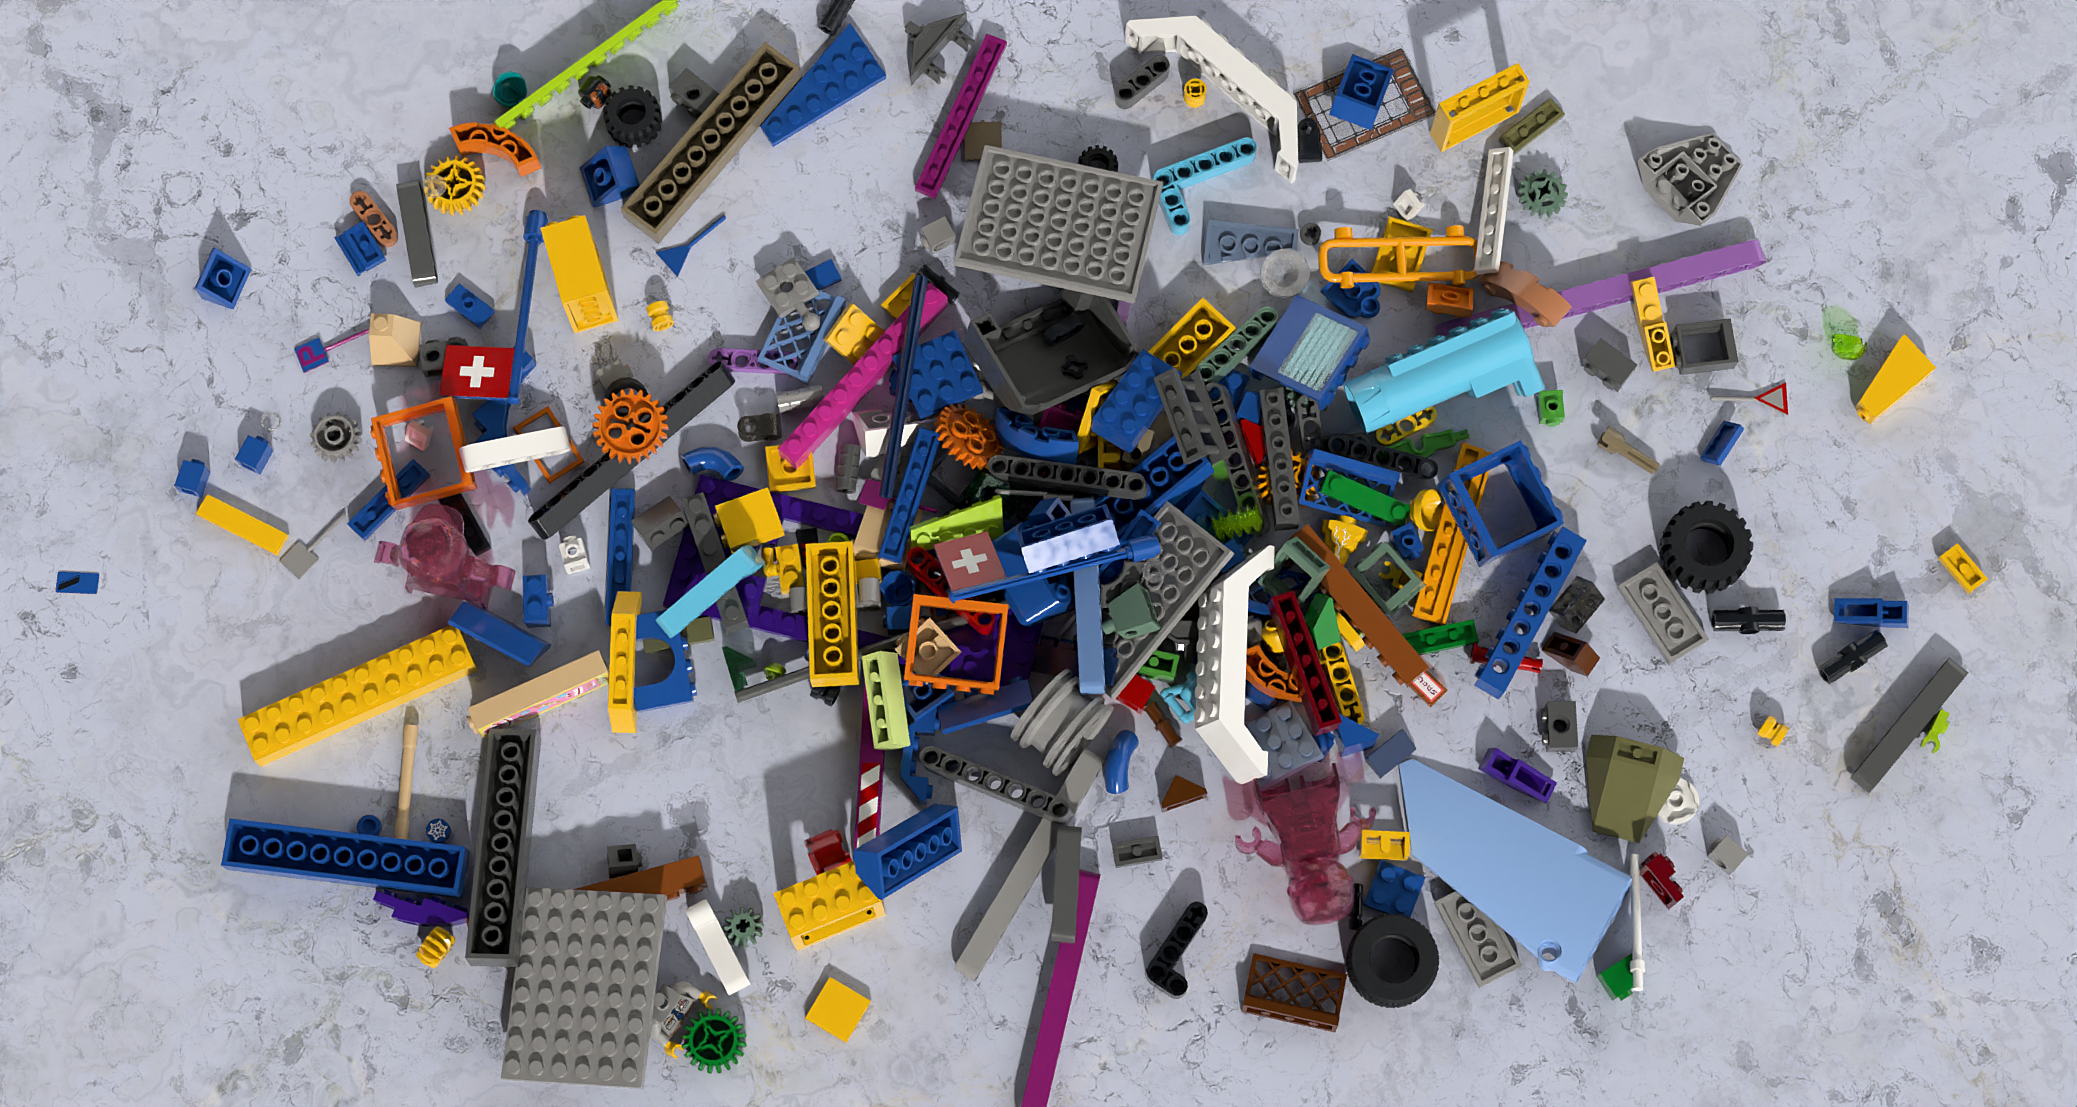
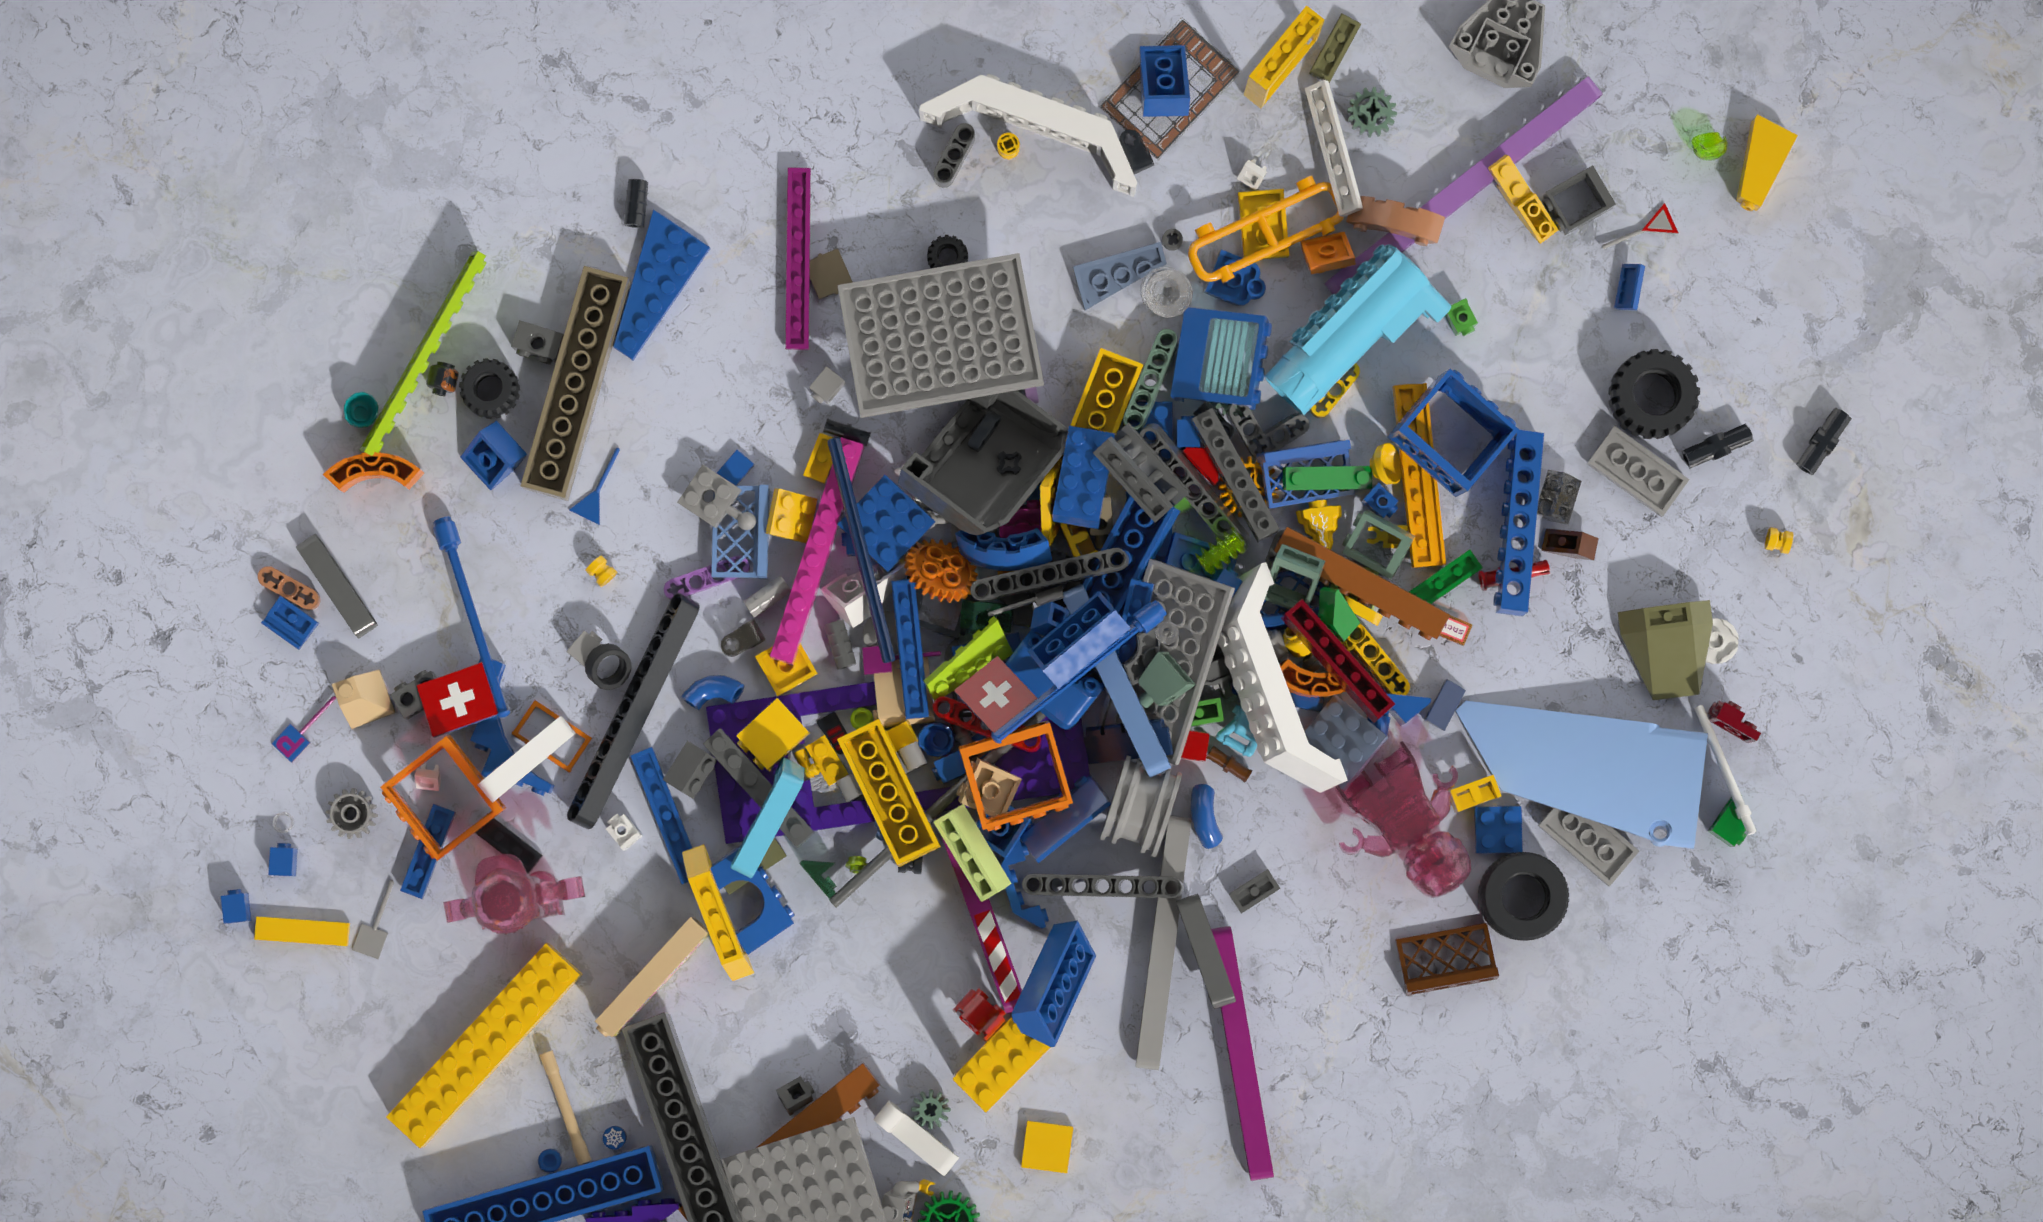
camera: 25 degrees left, 10 degrees up
(77, 582) = (174, 1048): blue sticker -> none
(222, 279) = (174, 707): blue slope -> none
(434, 186) = (334, 536): clear plate -> none
(469, 306) = (418, 634): blue plate -> none
(472, 188) = (341, 527): yellow gear -> none
(498, 633) = (589, 935): blue slope -> none
(537, 601) = (609, 889): blue brick -> none
(579, 273) = (511, 567): yellow window -> none
(637, 407) = (626, 715): orange gear -> none
(931, 40) = (737, 198): dark grey connector -> none
(1180, 947) = (1330, 962): black beam -> none
(1182, 793) = (1271, 821): reddish brown slope -> none
(1198, 175) = (1042, 226): medium azure beam -> none
(1356, 912) = (1476, 872): black axle -> none
(1393, 456) = (1336, 435): black beam -> none
(1430, 444) = (1344, 412): bright green piece -> none
(1517, 775) = (1566, 677): dark purple slope -> none
(1566, 714) = (1589, 603): dark grey brick -> none
(1608, 365) = (1497, 255): dark grey brick -> none
(1614, 442) = (1532, 327): dark tan piece -> none
(1727, 854) = (1781, 672): light grey brick -> none
(1871, 612) = (1824, 392): blue slope -> none
(1909, 725) = (1898, 484): dark grey beam -> none
(1938, 725) = (1923, 474): lime plate -> none
(1962, 568) = (1891, 316): yellow plate -> none

